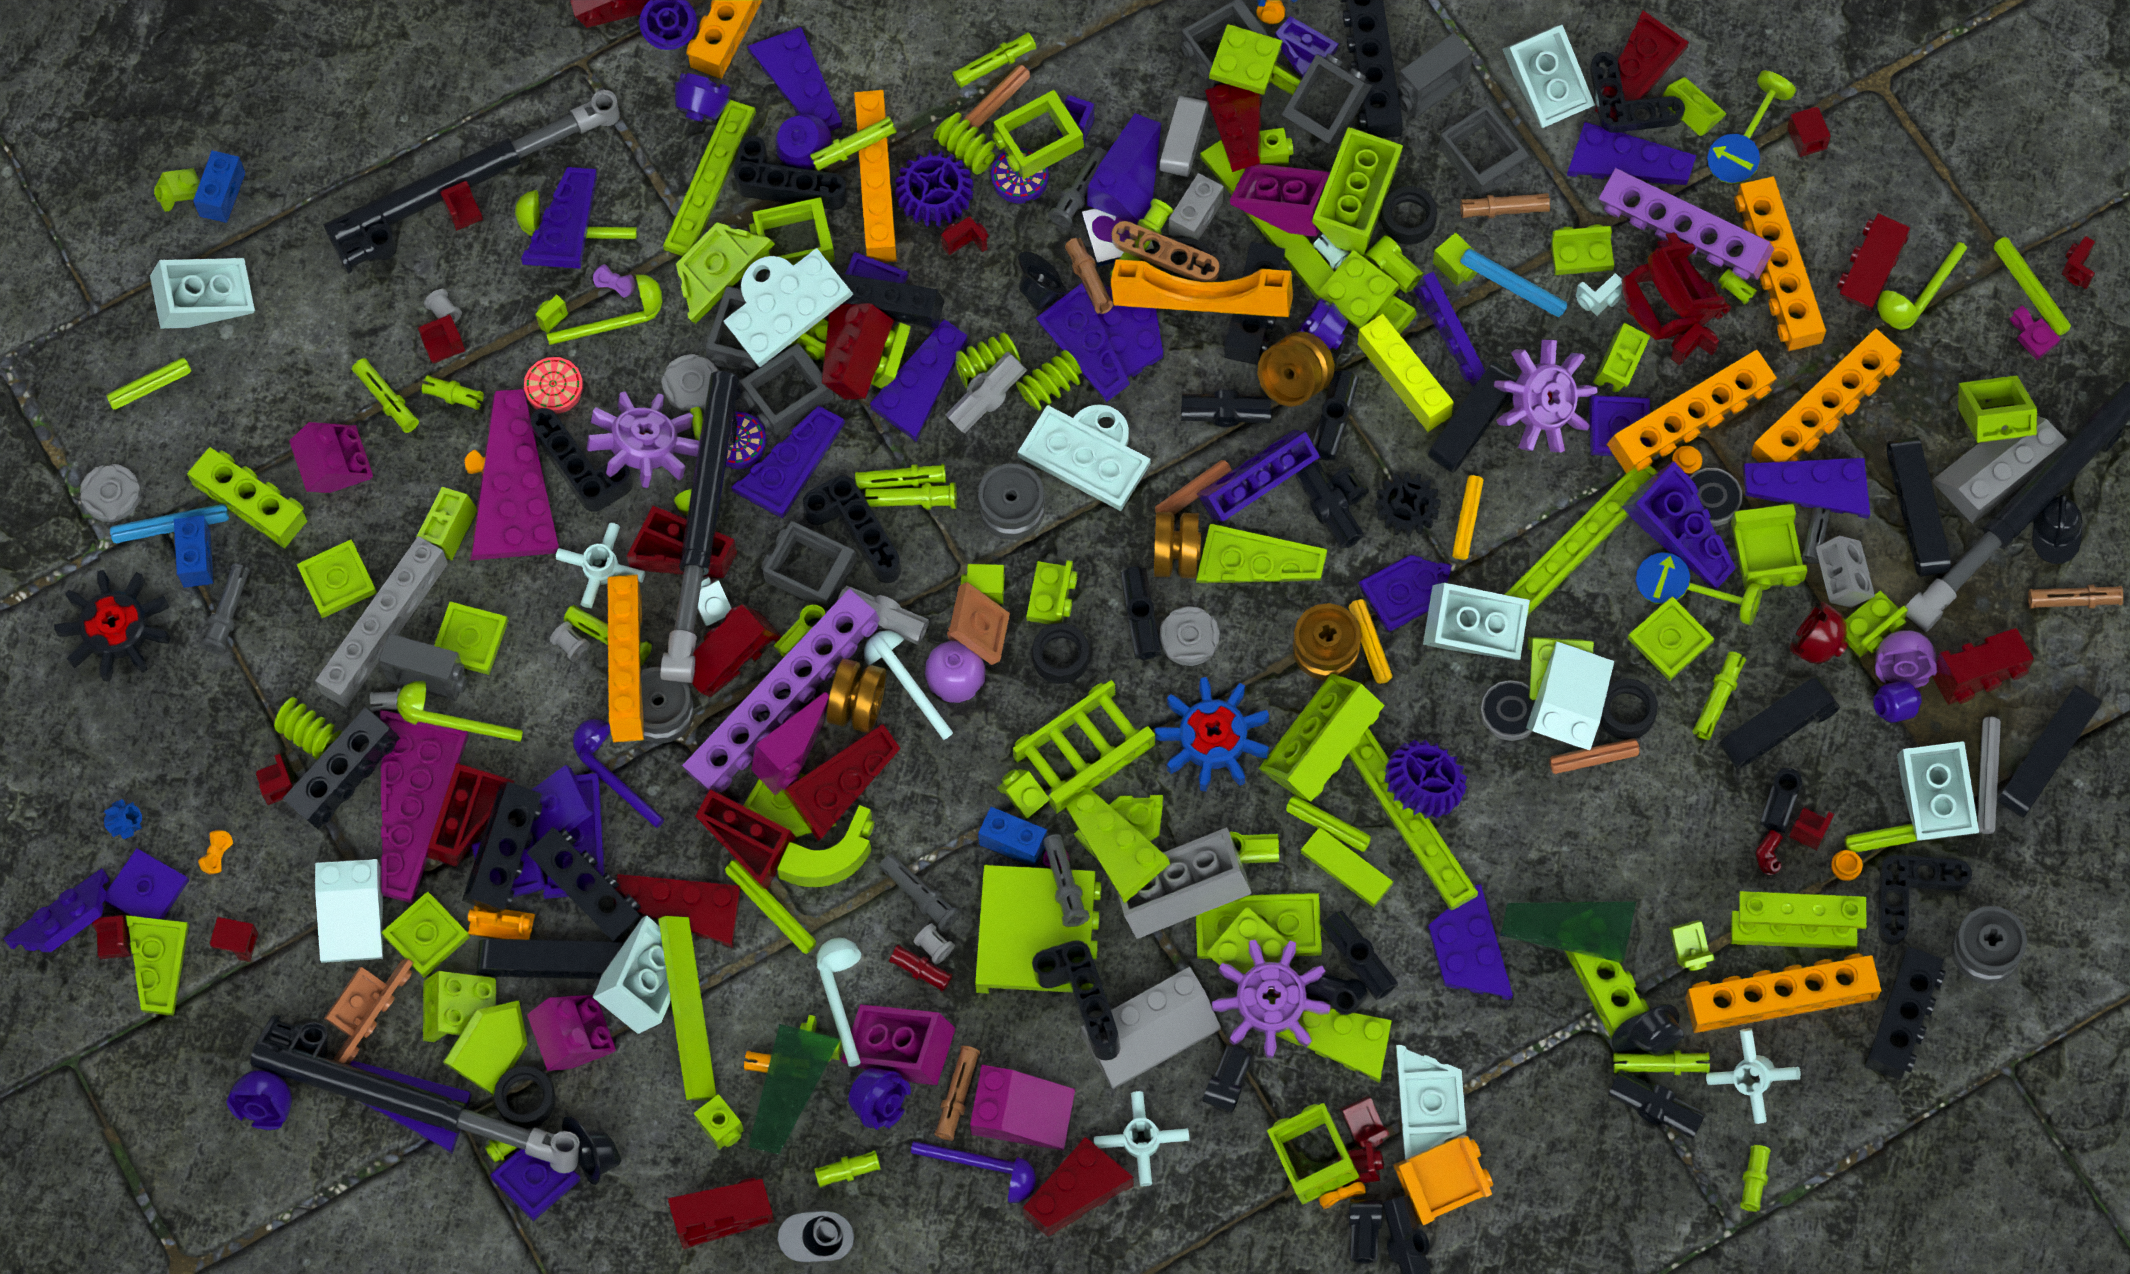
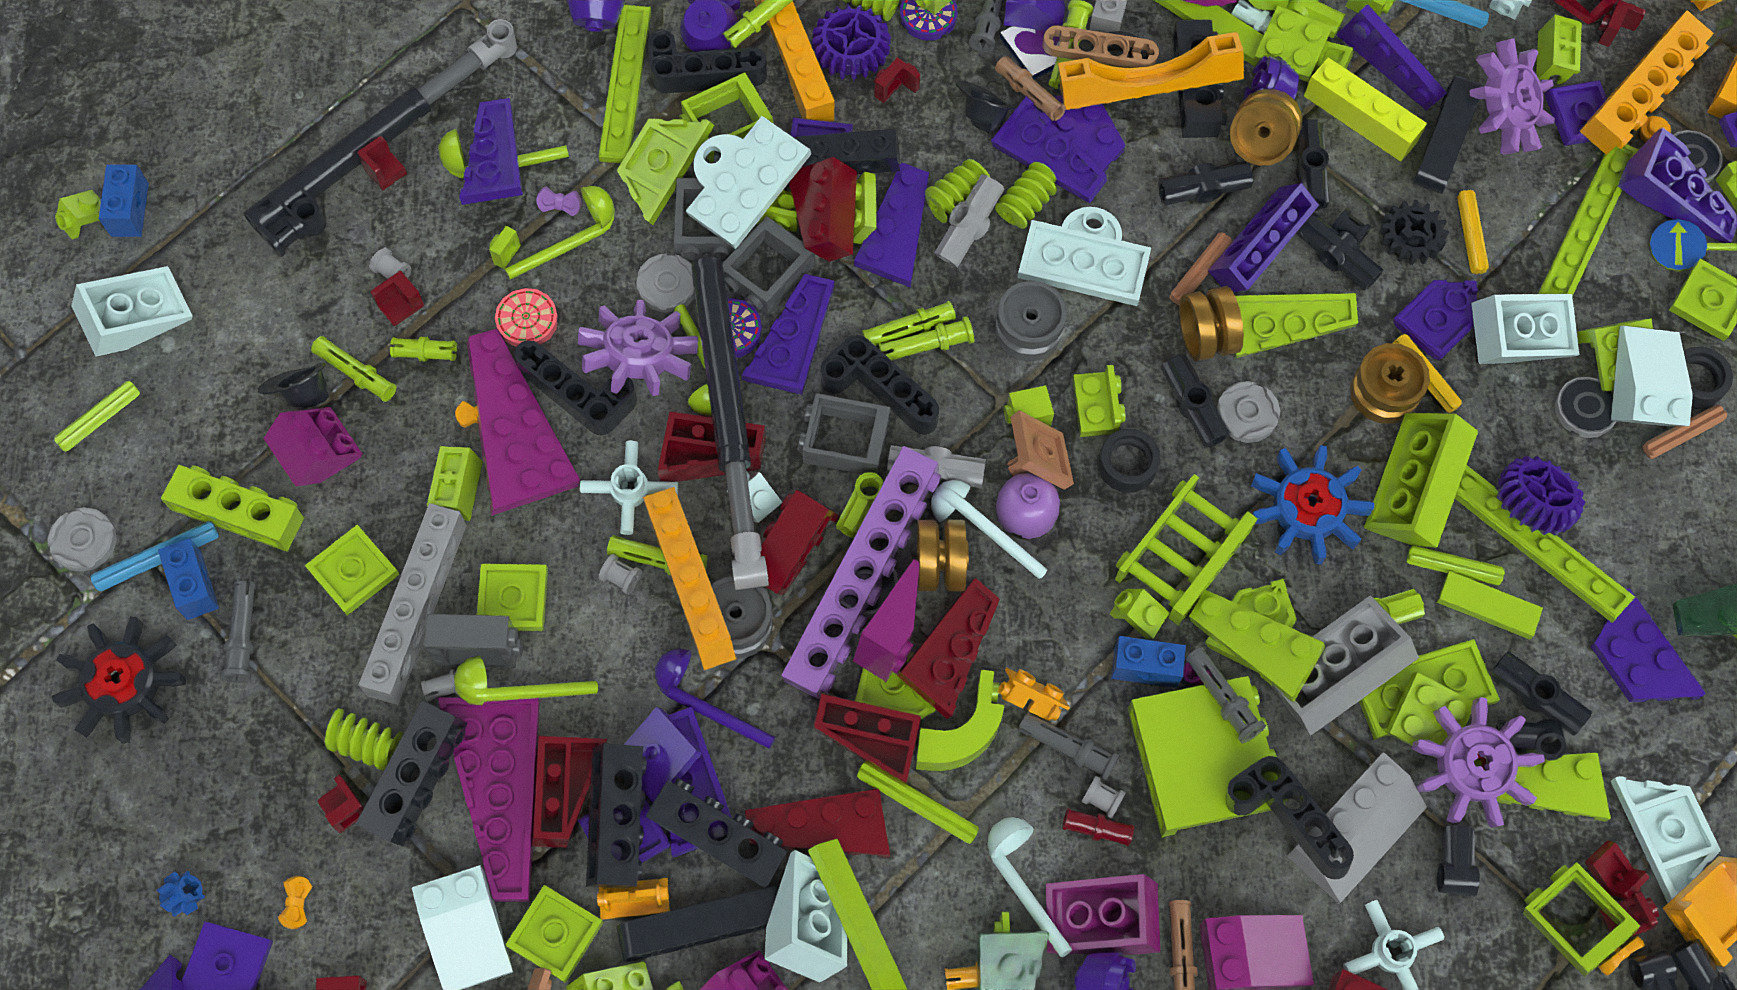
camera: 20 degrees left, 0 degrees up
(332, 400) = (299, 387): none -> black piece
(893, 829) = (1045, 699): none -> light orange hinge

